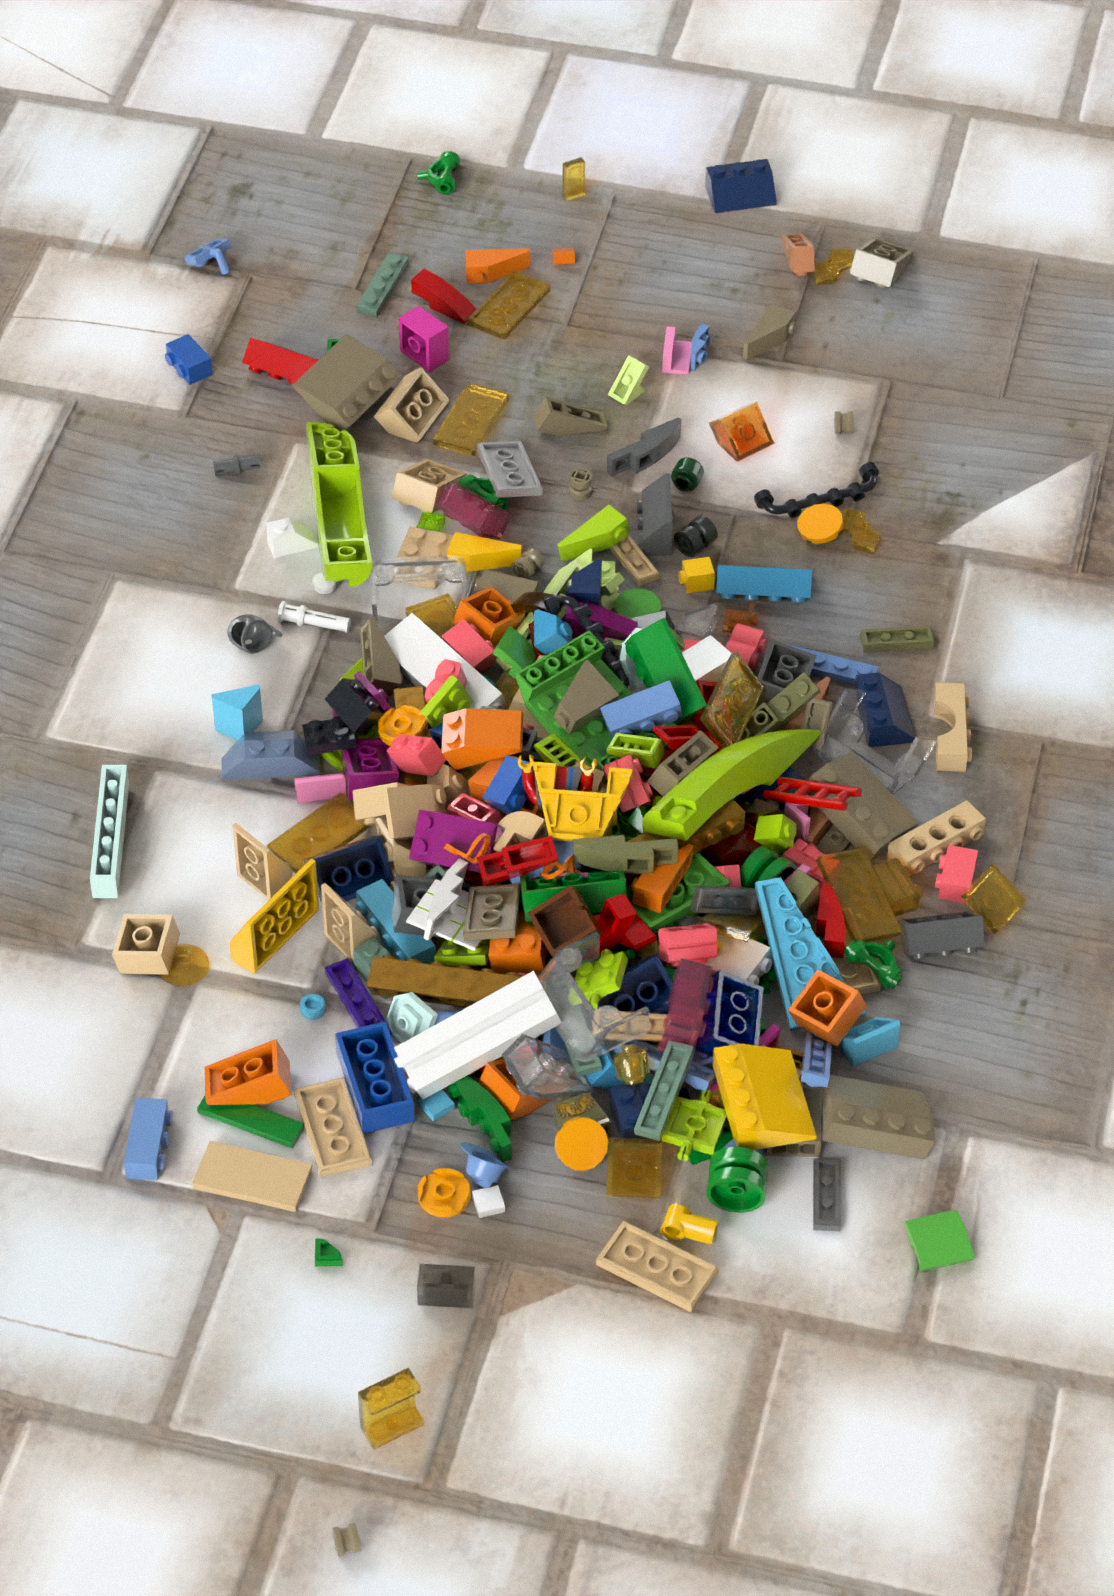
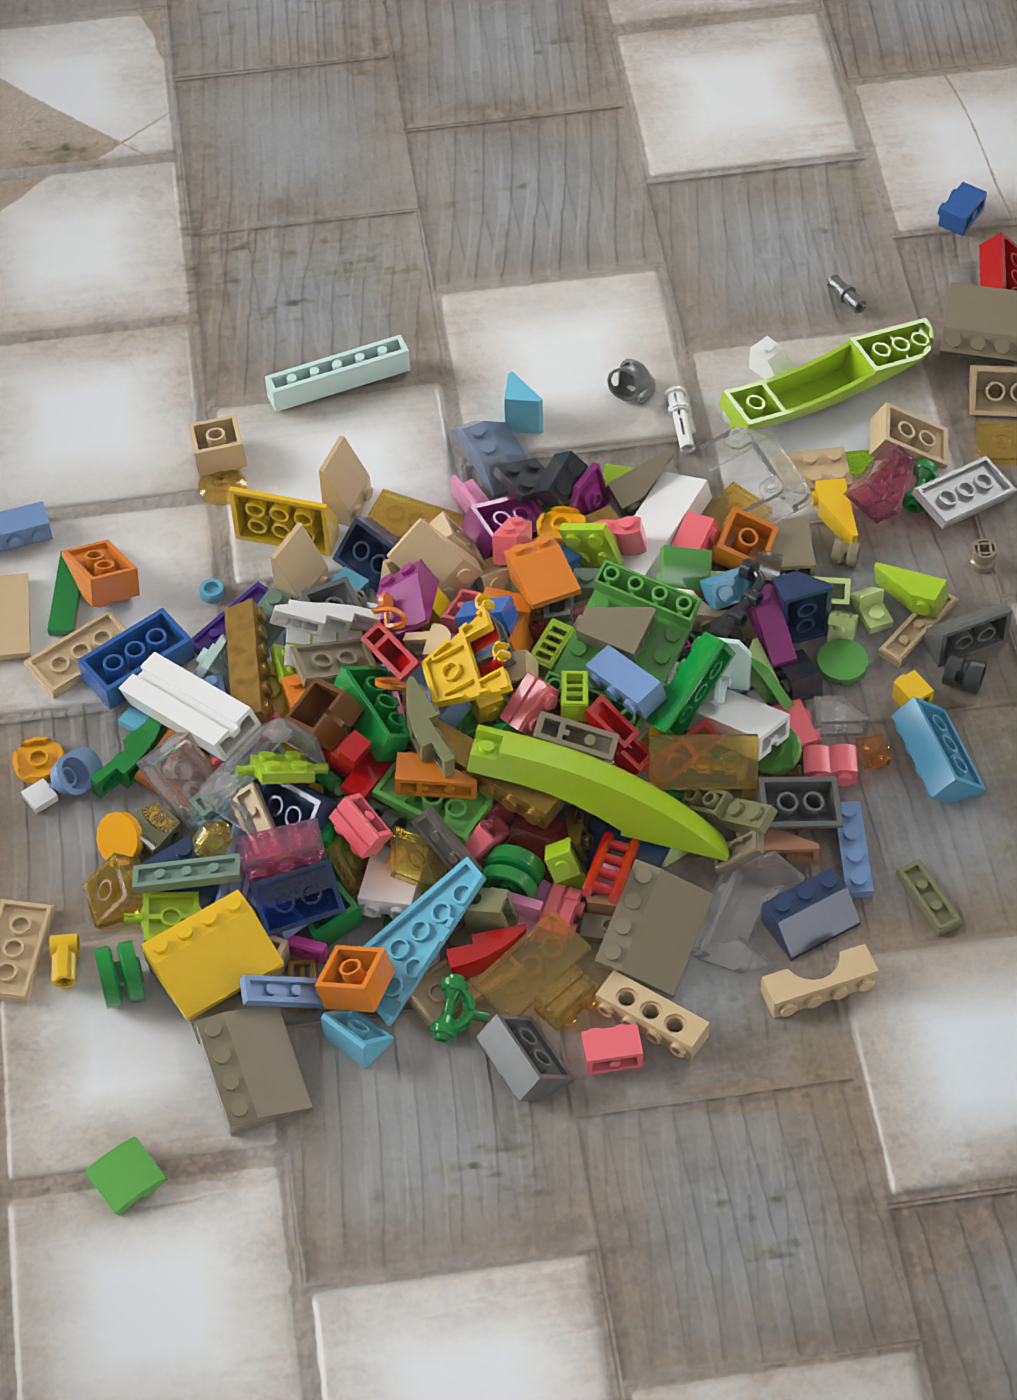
camera: 70 degrees right, 5 degrees up
(826, 1194) = (150, 1062): flat silver tile -> none
(993, 898) = (589, 1090): clear yellow tile -> none

